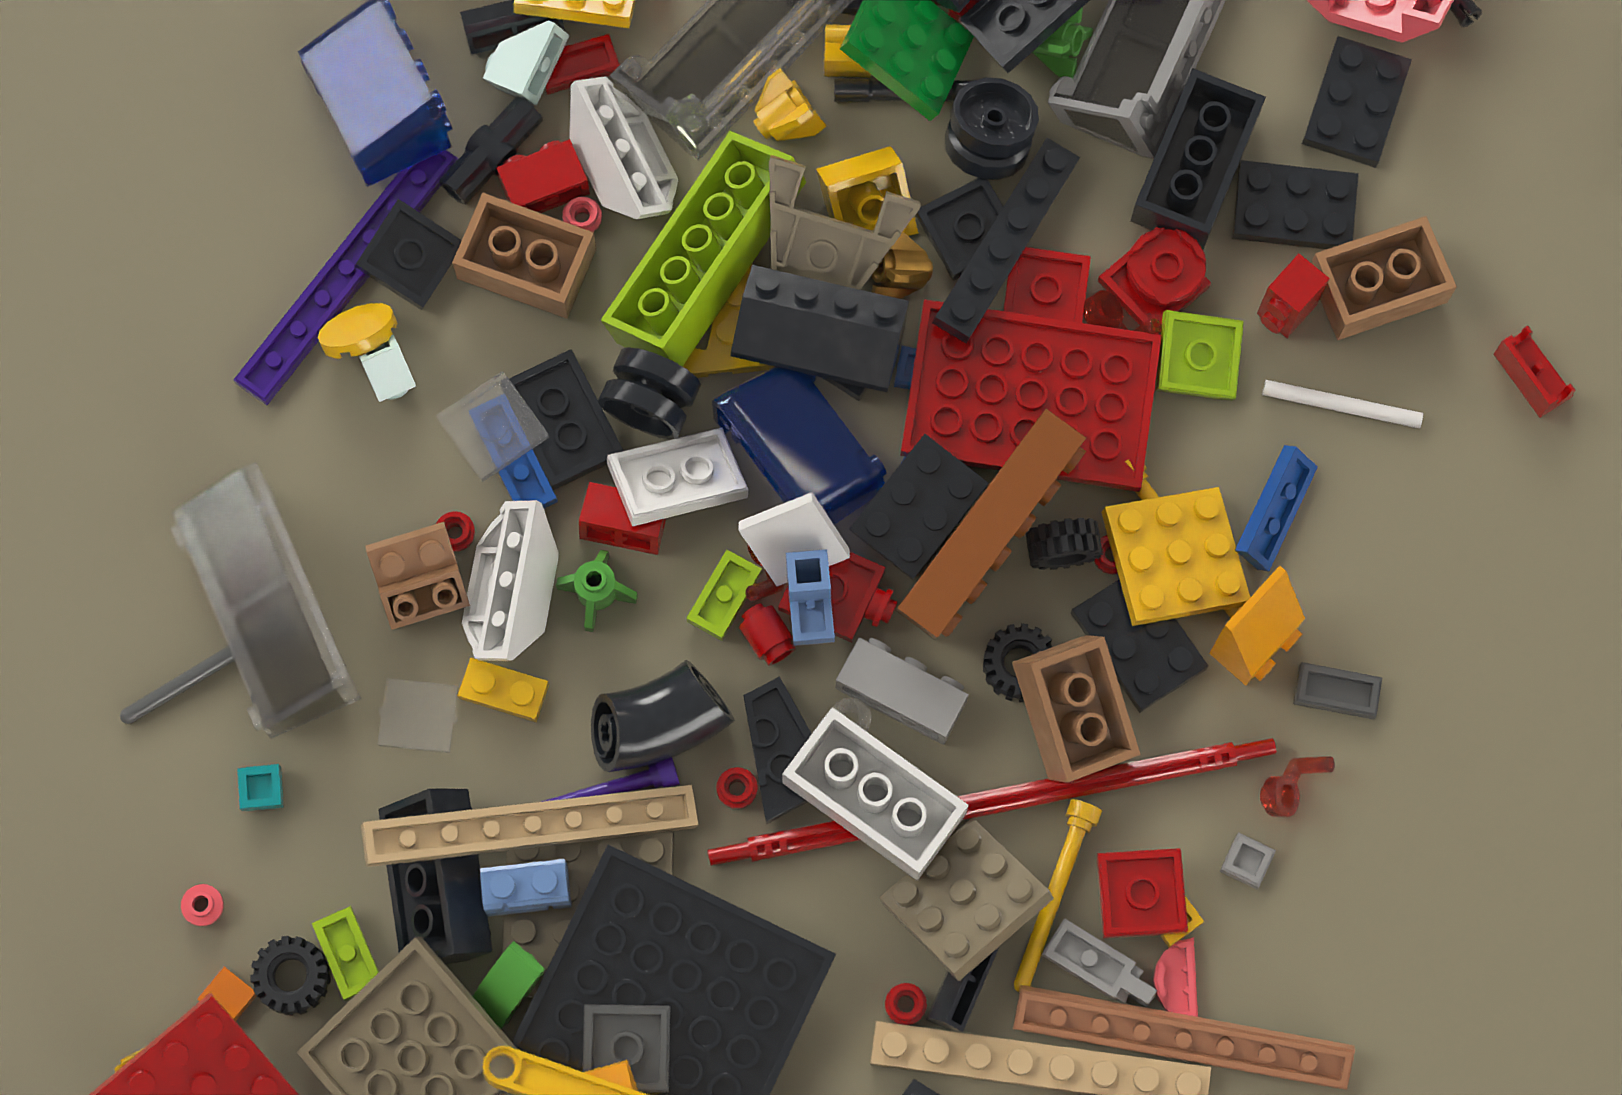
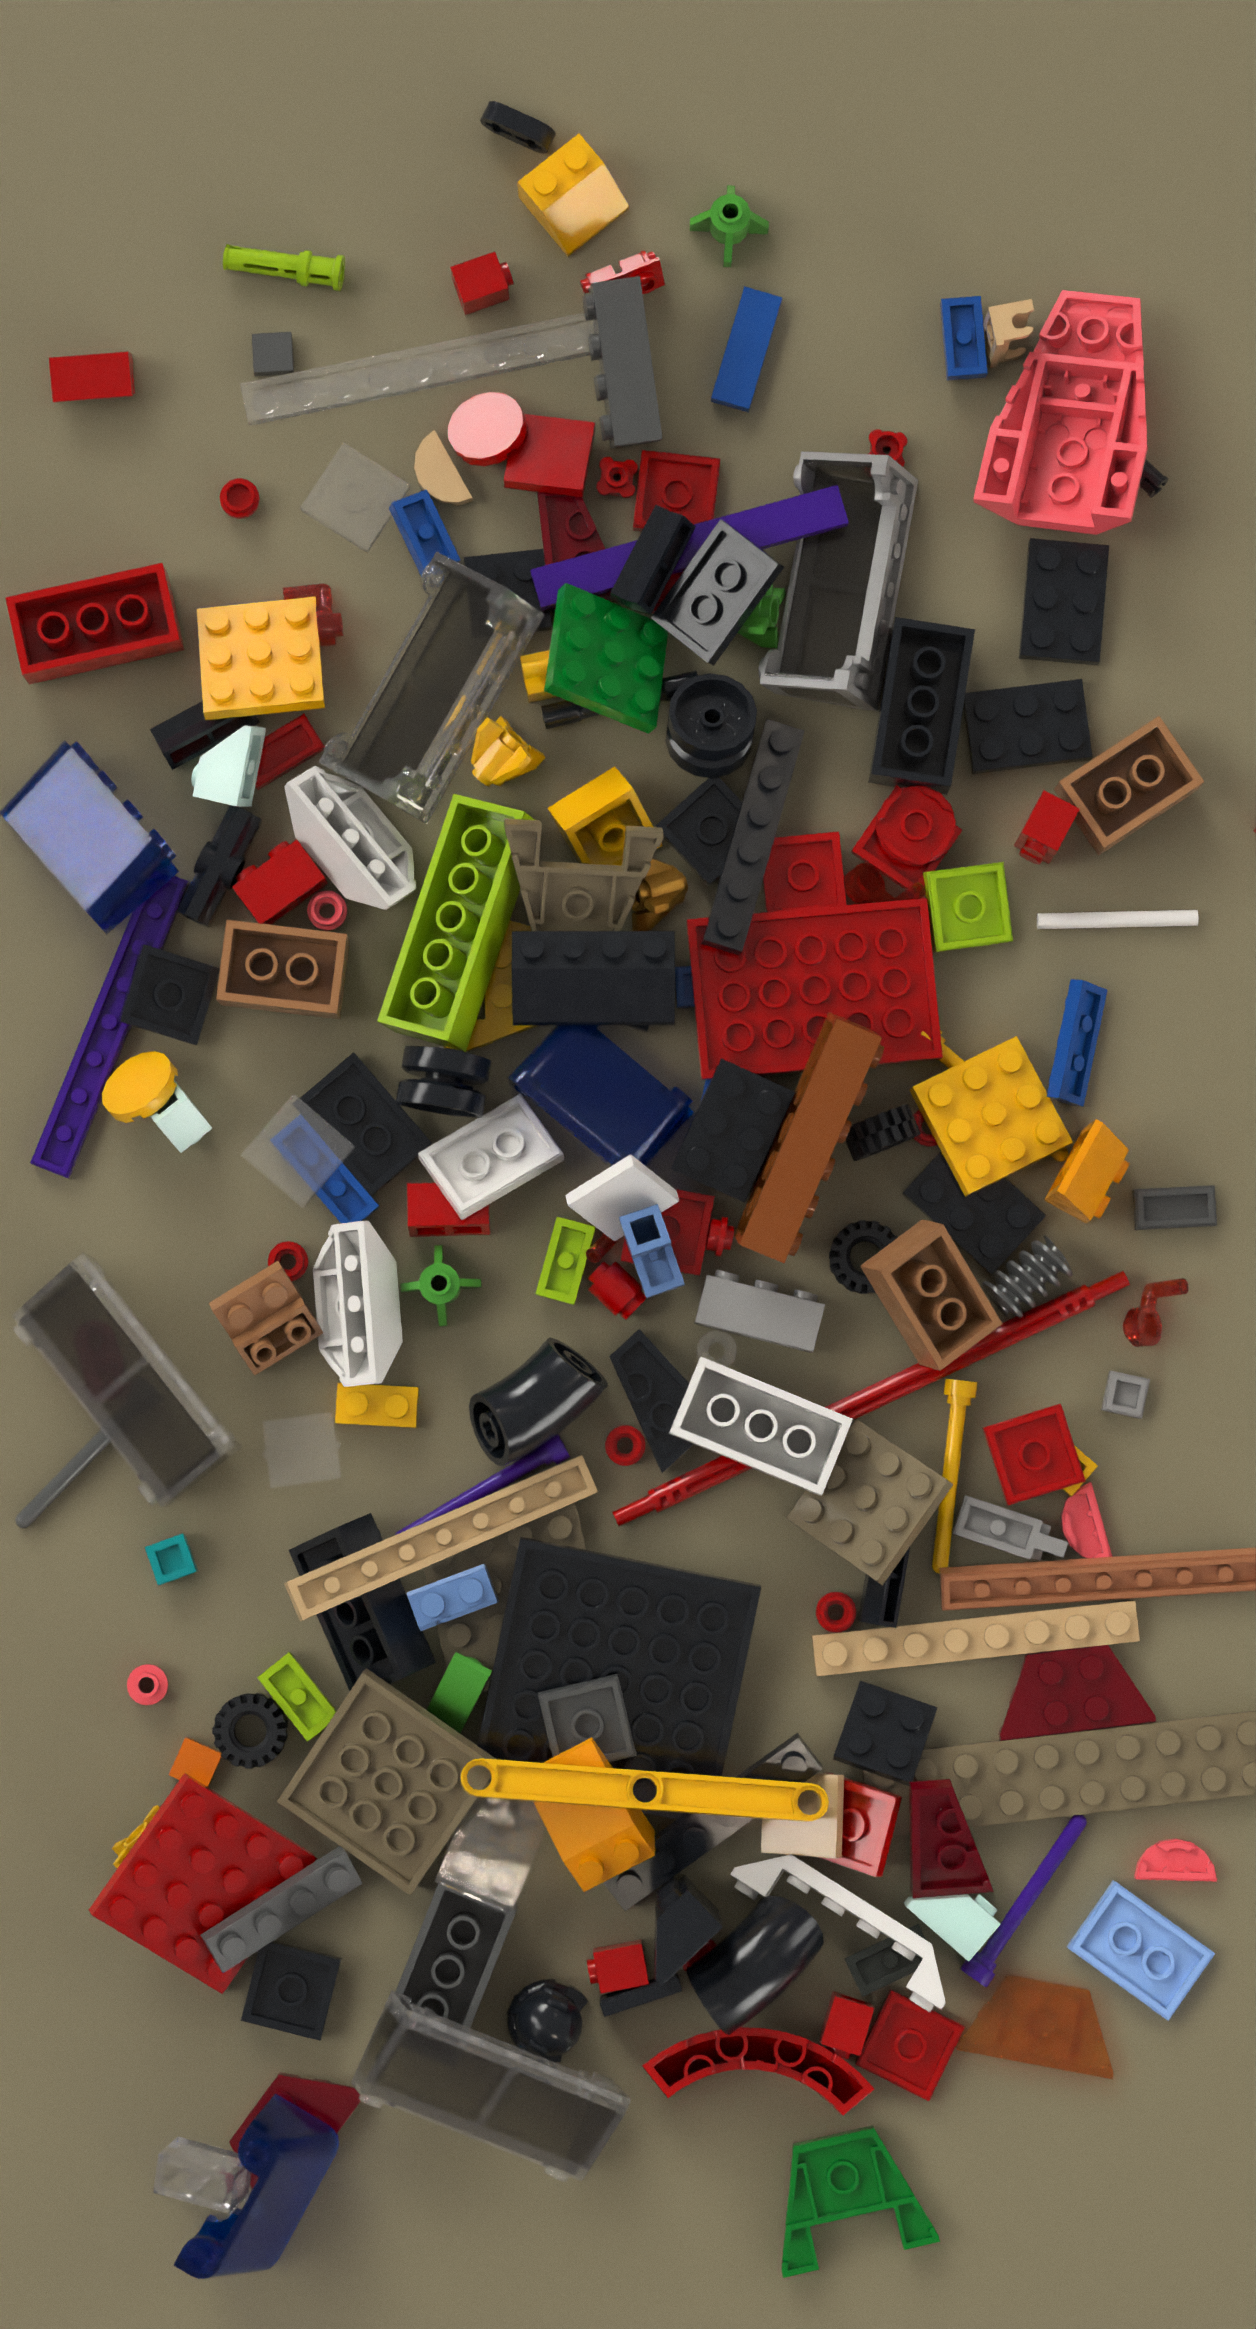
camera: 15 degrees left, 10 degrees up
(1175, 719) = (1027, 1278): none -> dark grey piece

